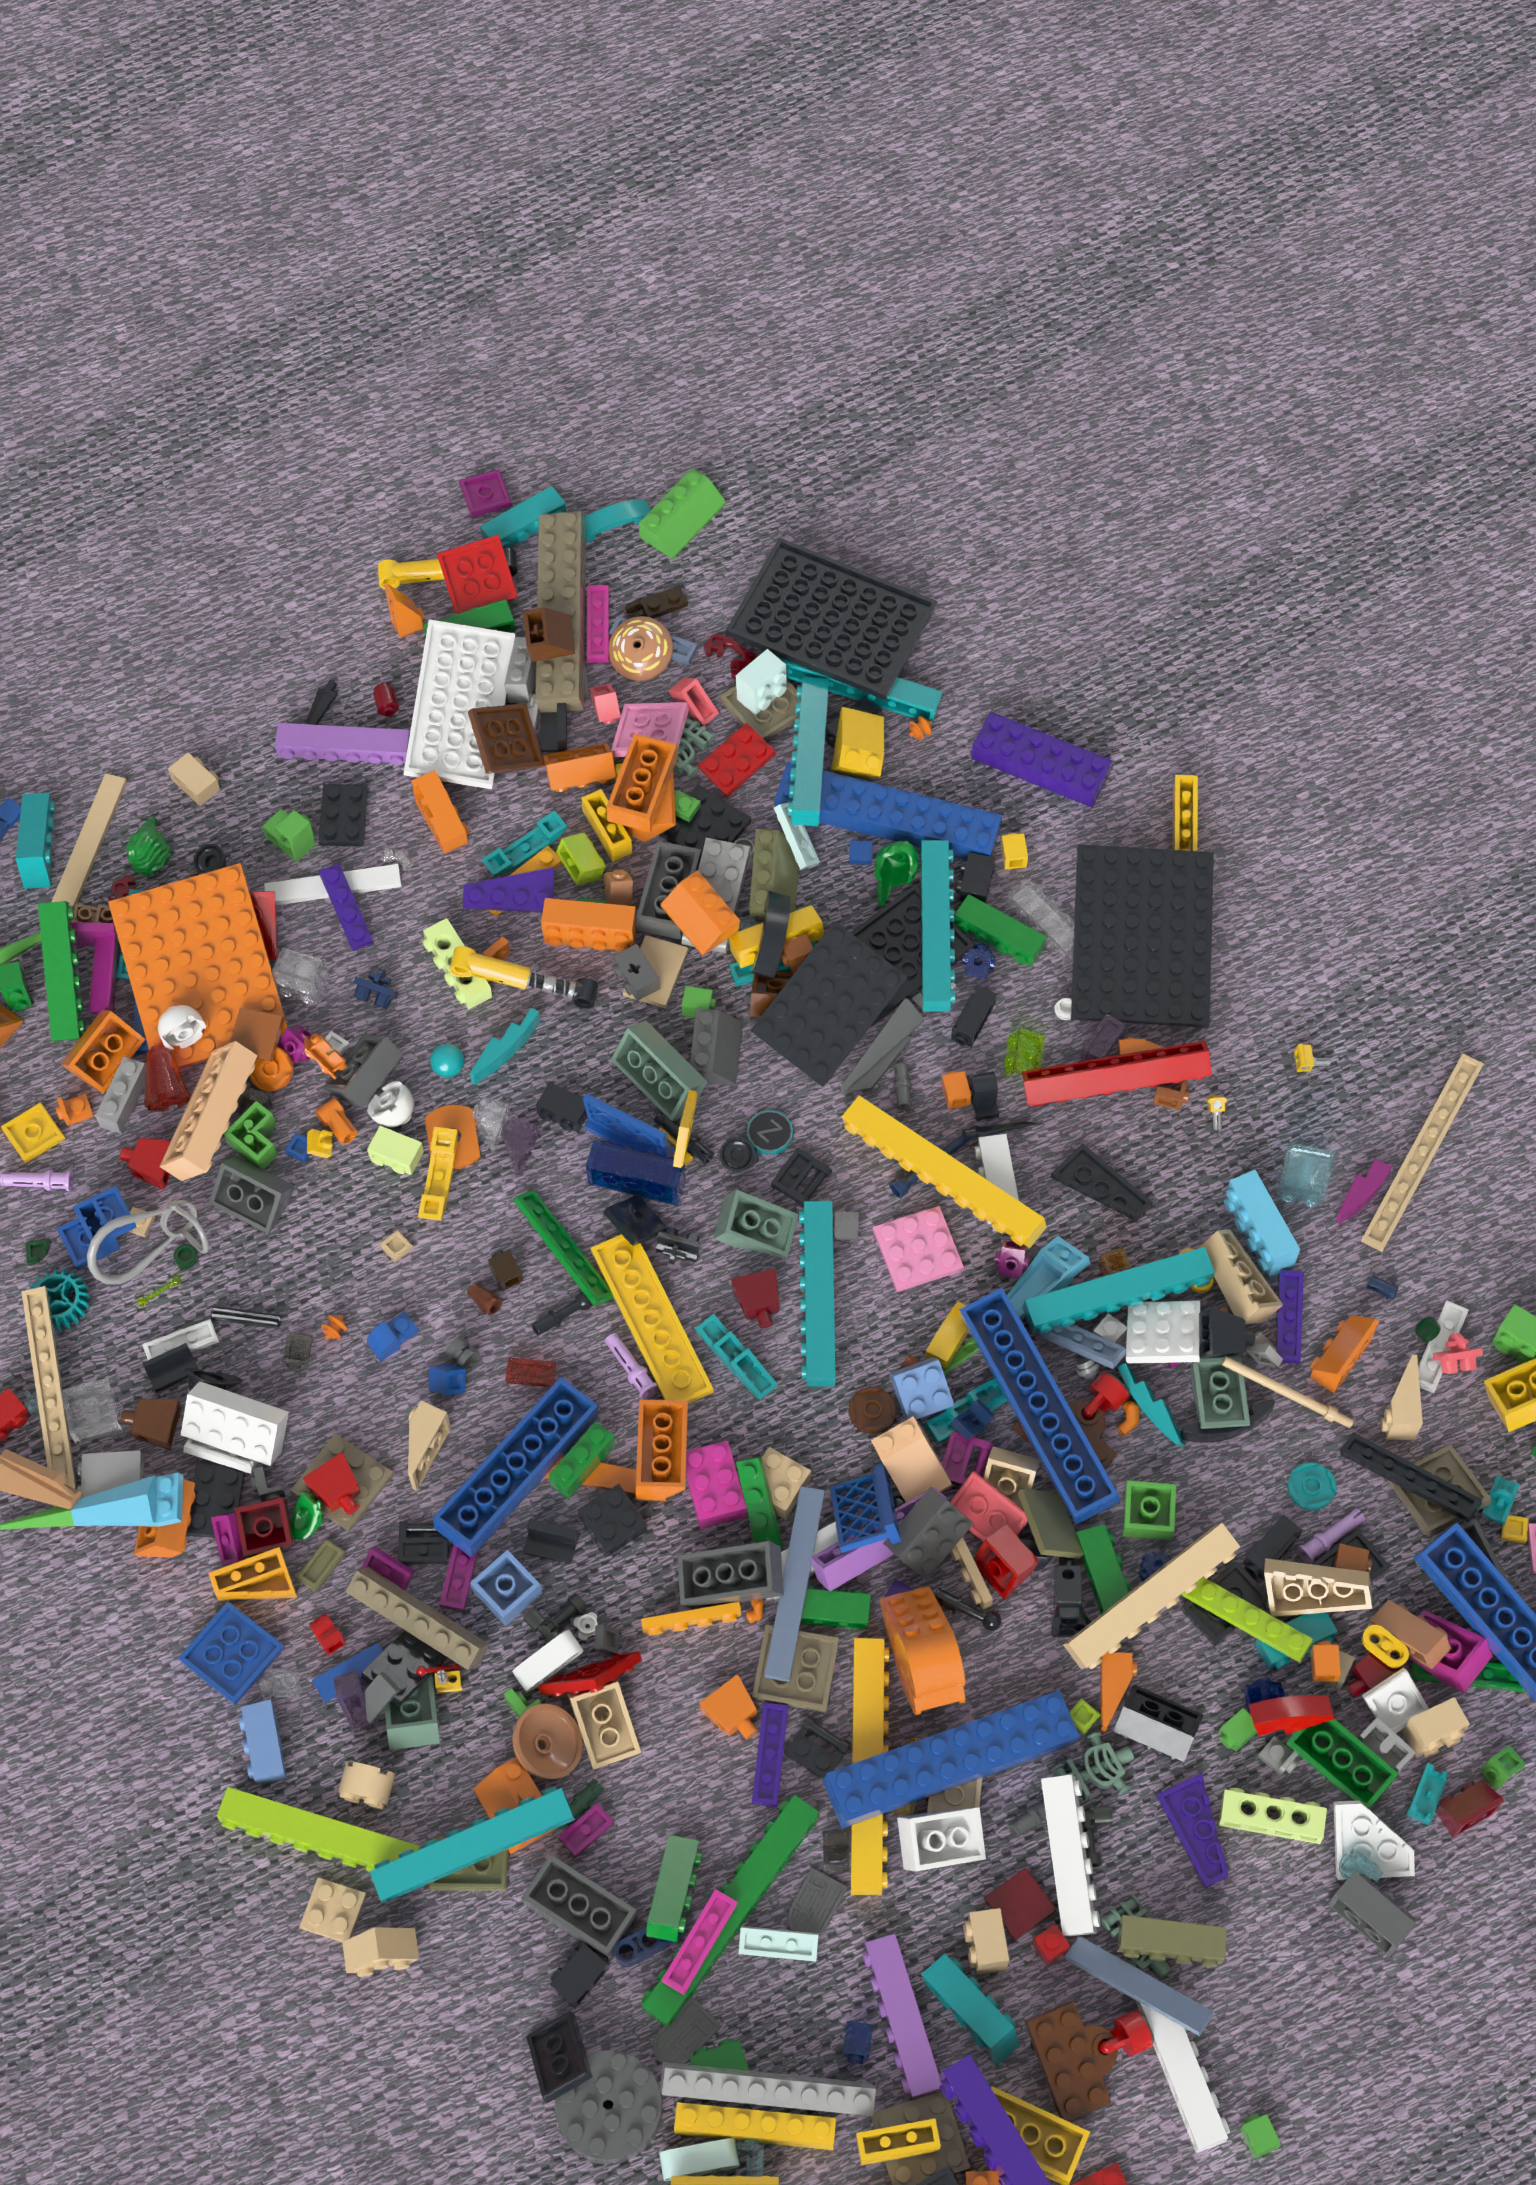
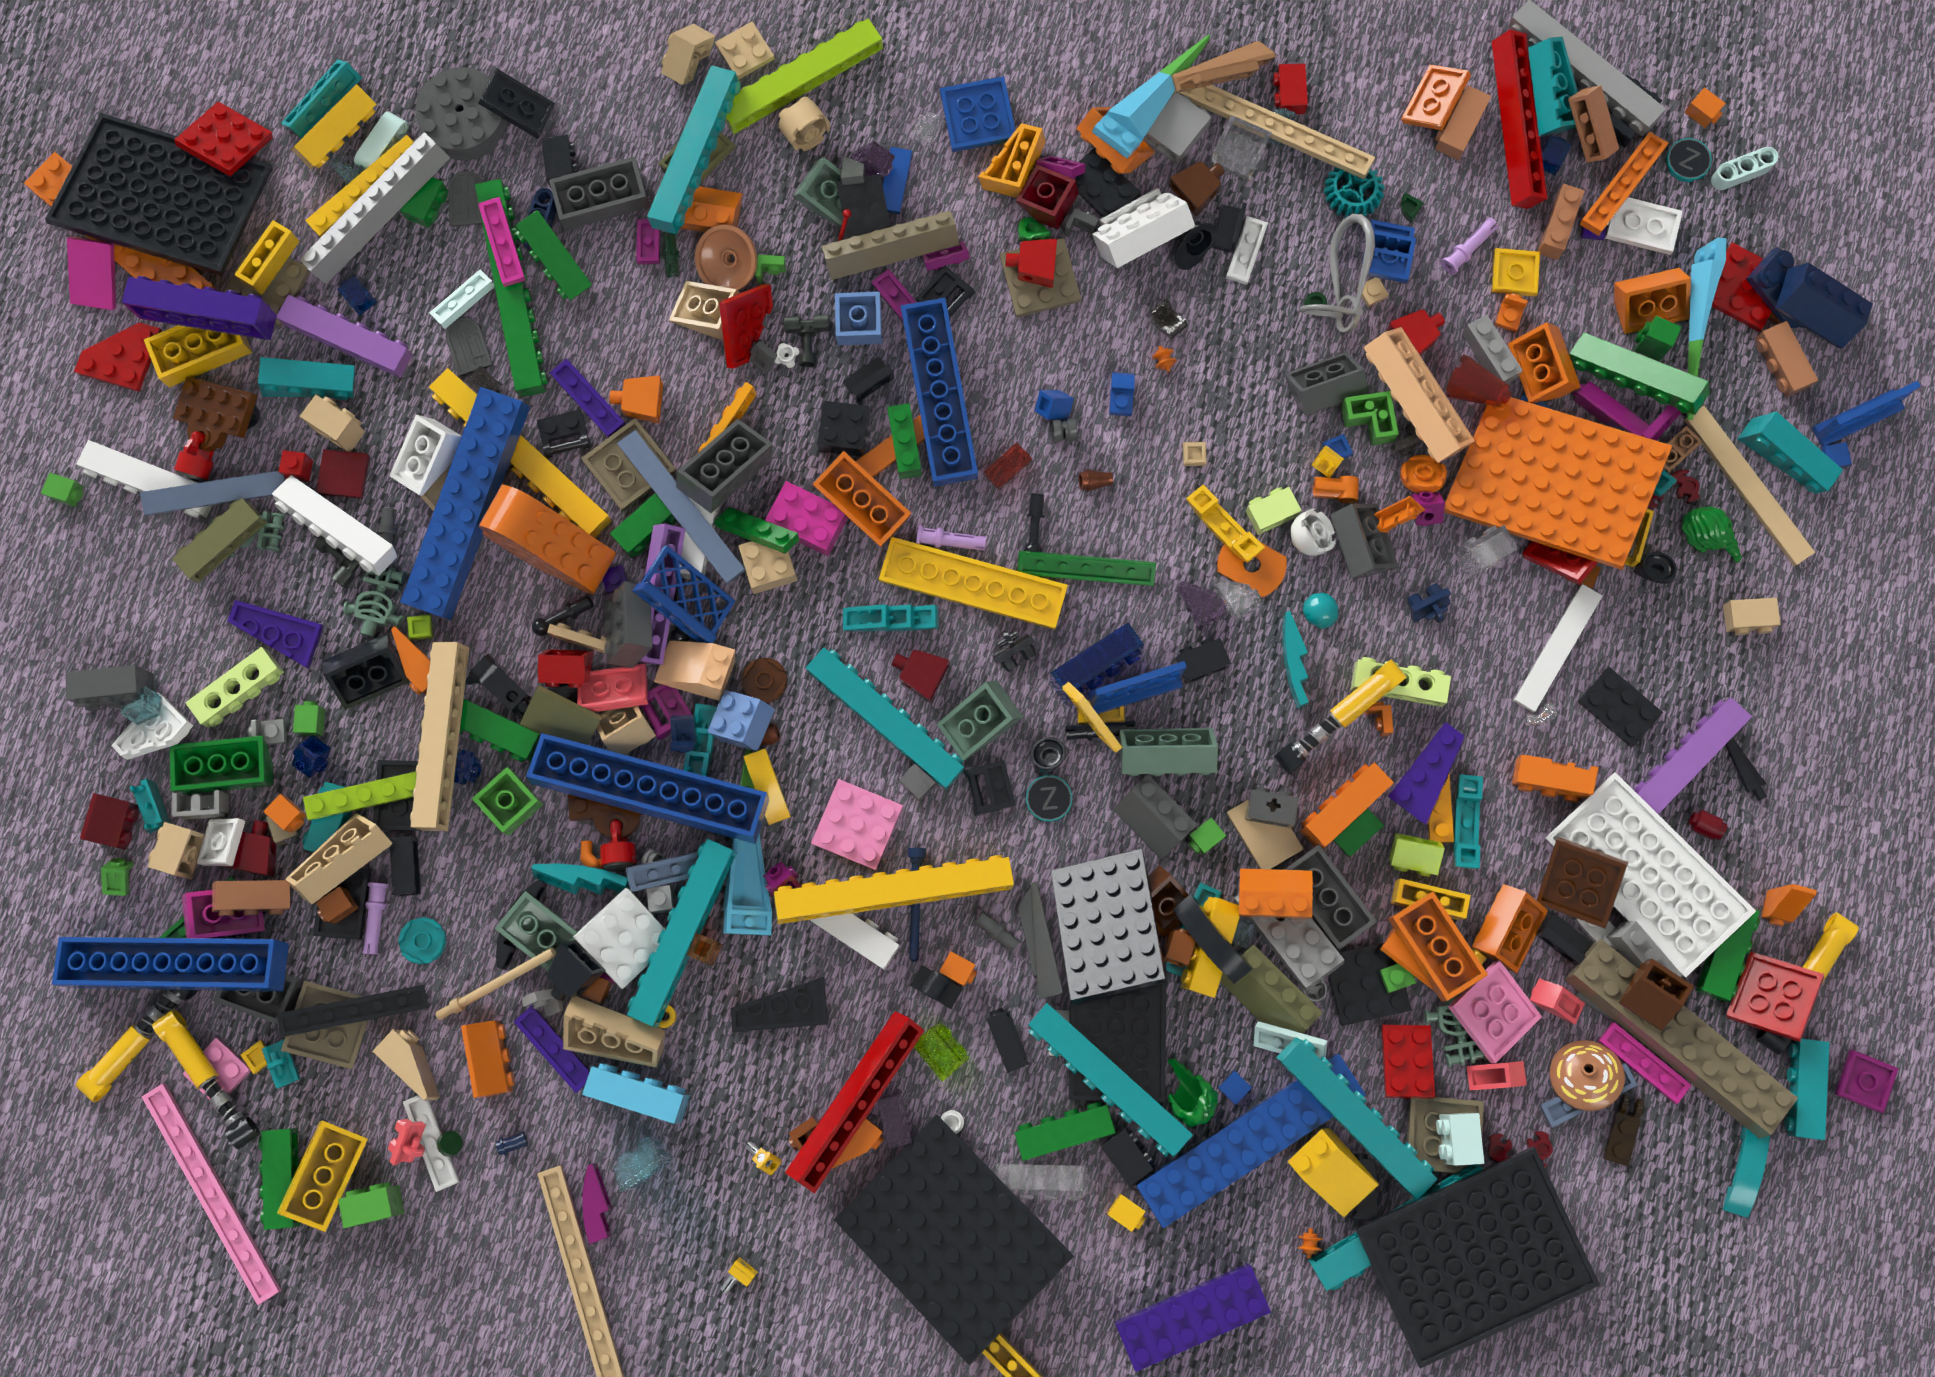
camera: 135 degrees right, 15 degrees up
(141, 1302) = (1304, 249): clear neon green hinge -> none
(180, 1026) = (1513, 423): white cylinder -> none
(245, 1317) = (1228, 307): black axle -> none
(258, 1032) = (1458, 477): dark orange tile -> none
(262, 1742) = (895, 87): medium blue brick -> none
(290, 833) = (1633, 646): bright green brick -> none
(321, 1565) = (990, 218): olive tile -> none
(327, 1634) = (935, 183): red leg -> none
(337, 1043) = (1406, 537): white tile -> none
(345, 907) = (1527, 639): dark purple plate -> none
(427, 1433) = (1017, 346): tan slope -> none
(442, 1681) = (832, 231): yellow piece -> none
(505, 1270) = (1104, 511): dark brown brick -> none
(547, 1661) = (781, 303): white beam -> none
(618, 887) = (1362, 859): nougat brick -> none
(635, 1220) = (1060, 633): black plate -> none
(681, 514) = (1704, 1233): bright green slope -> none
(972, 967) = (1049, 1086): clear blue brick -> none
(992, 1129) = (901, 961): black bar -> none
(1290, 1713) = (274, 754): red slope -> none
(1386, 1645) = (258, 867): yellow plate -> none

